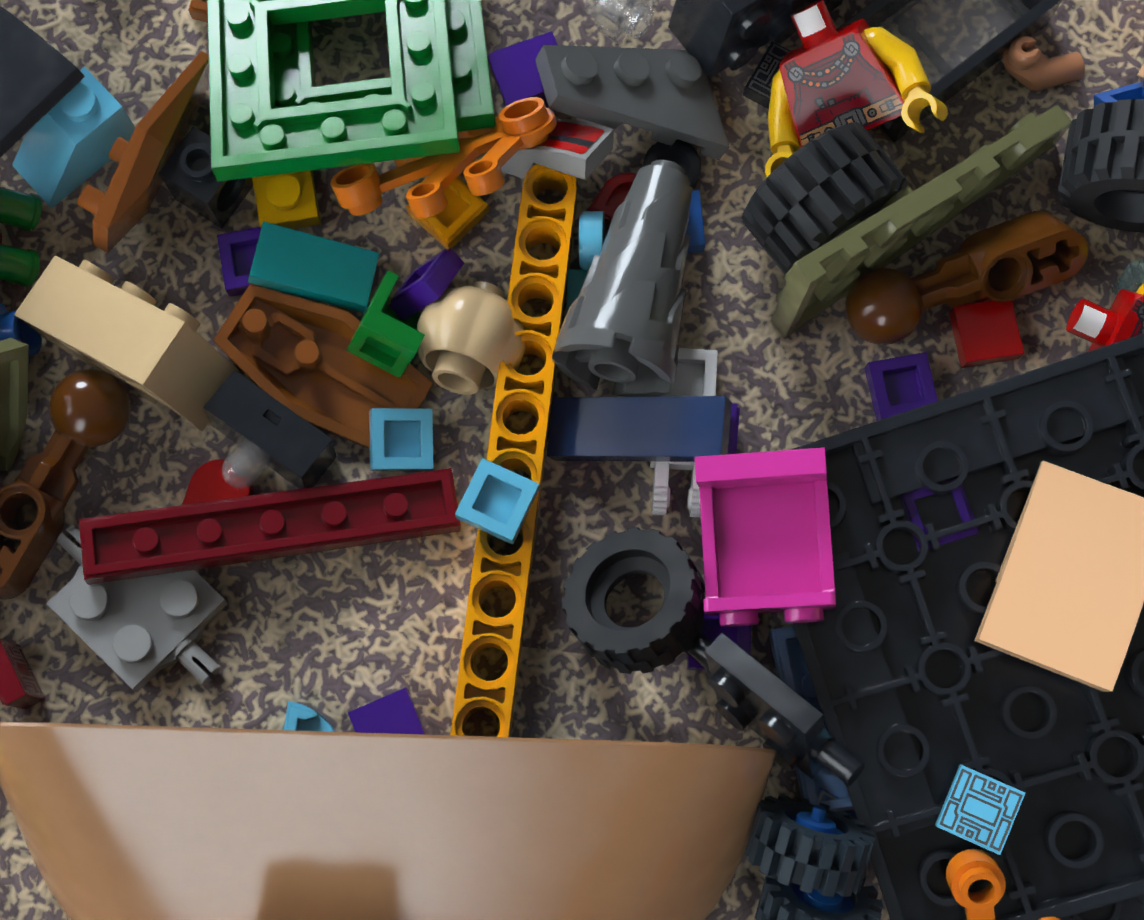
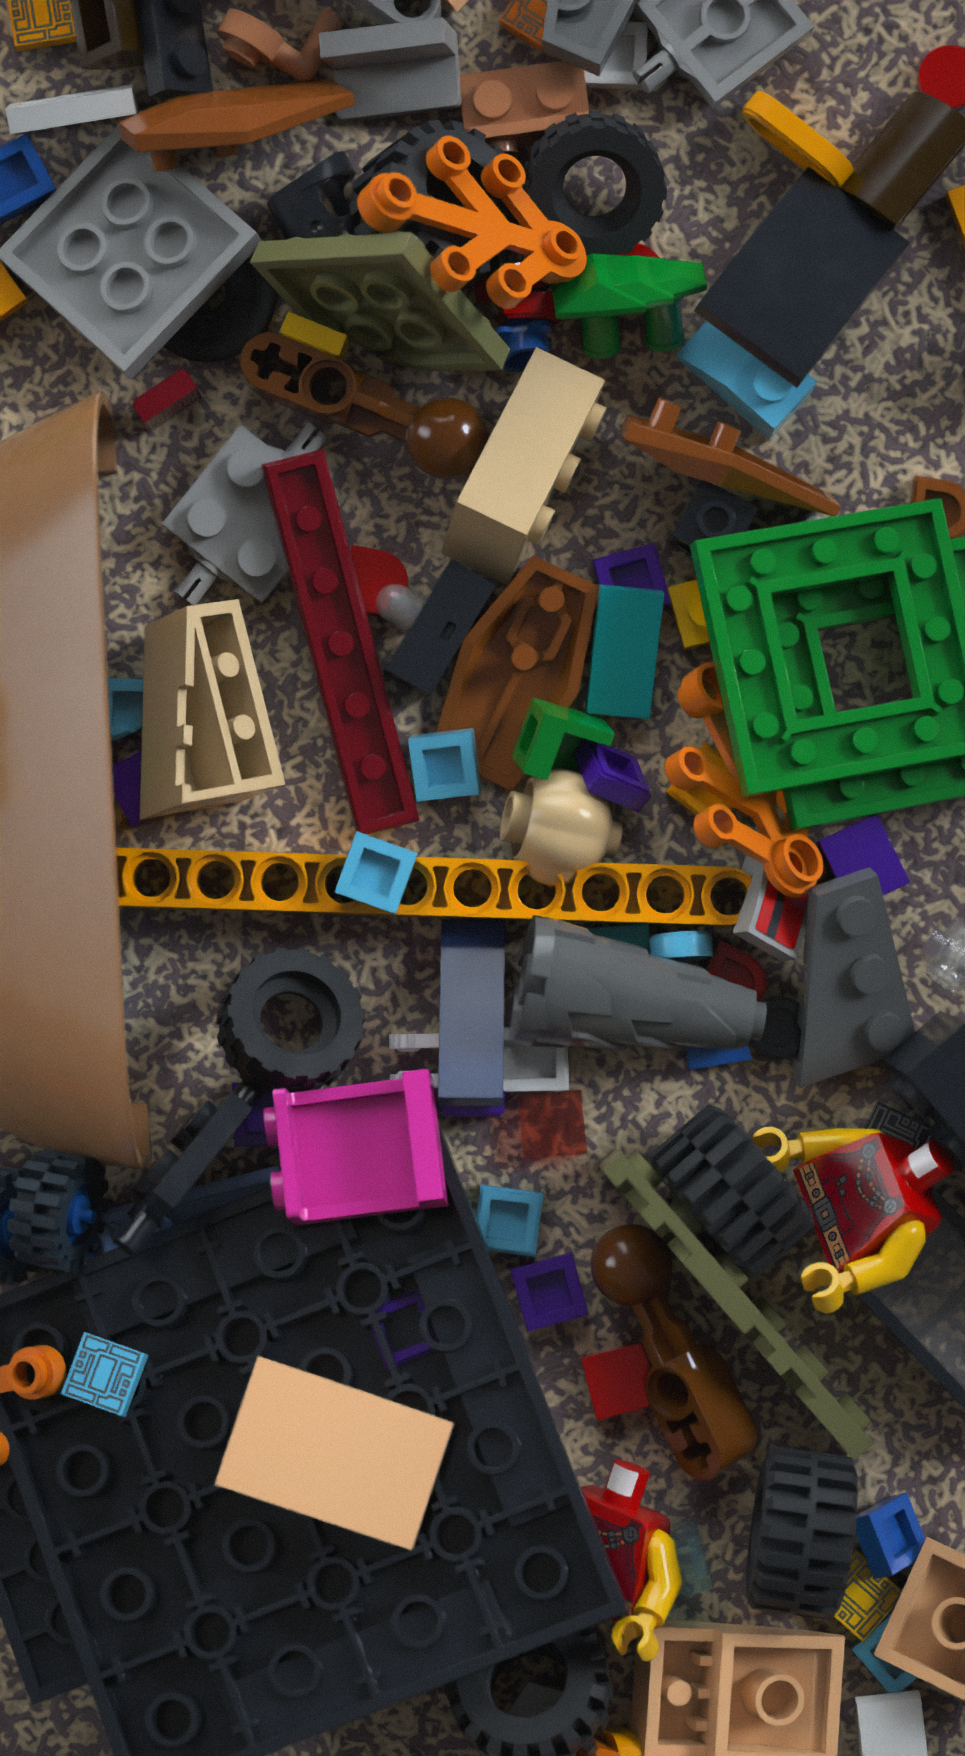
camera: 90 degrees right, 10 degrees up
(322, 660) = (203, 714): none -> tan wedge
(747, 372) = (552, 1124): none -> clear red tile
(831, 413) = (509, 1219): none -> medium azure tile
(1036, 70) = (929, 1429): nougat arm -> none

